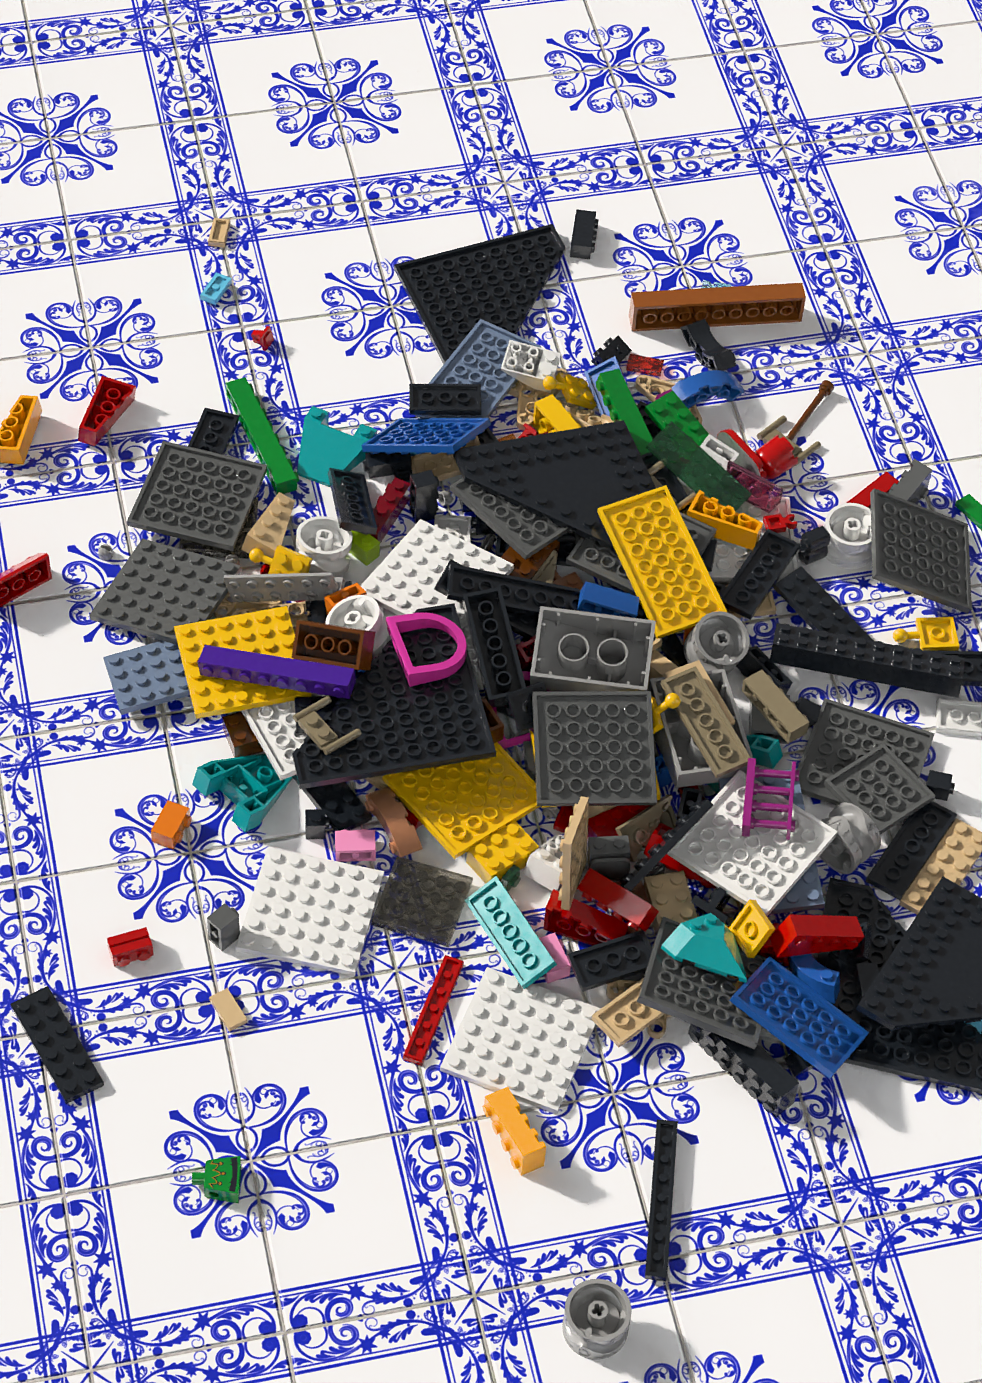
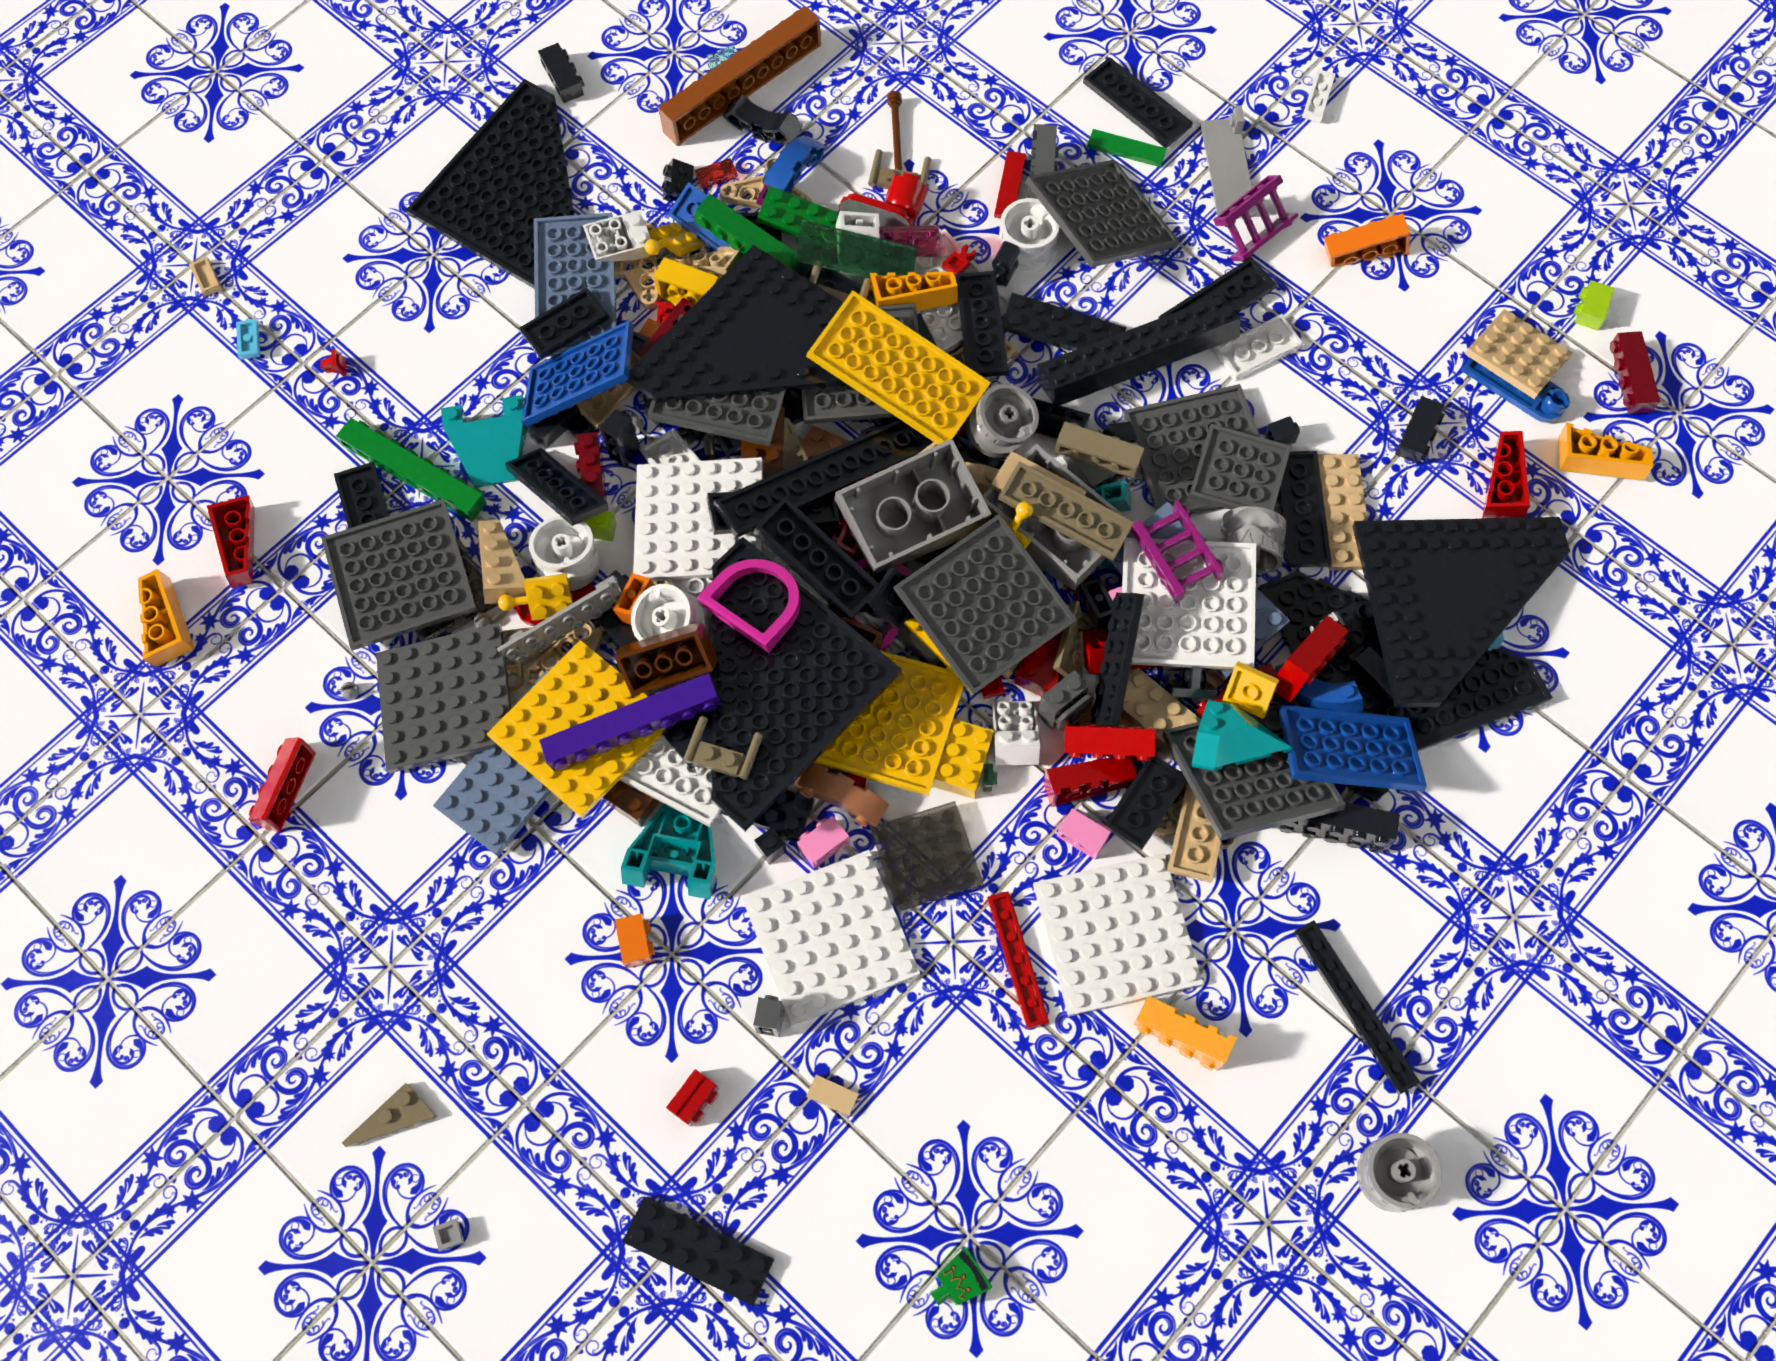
camera: 30 degrees left, 15 degrees up
(510, 932) = (1033, 835): plate -> none
(574, 853) = (1049, 724): tan plate -> none
(607, 601) = (879, 442): blue brick -> none
(933, 634) = (1166, 286): yellow plate -> none

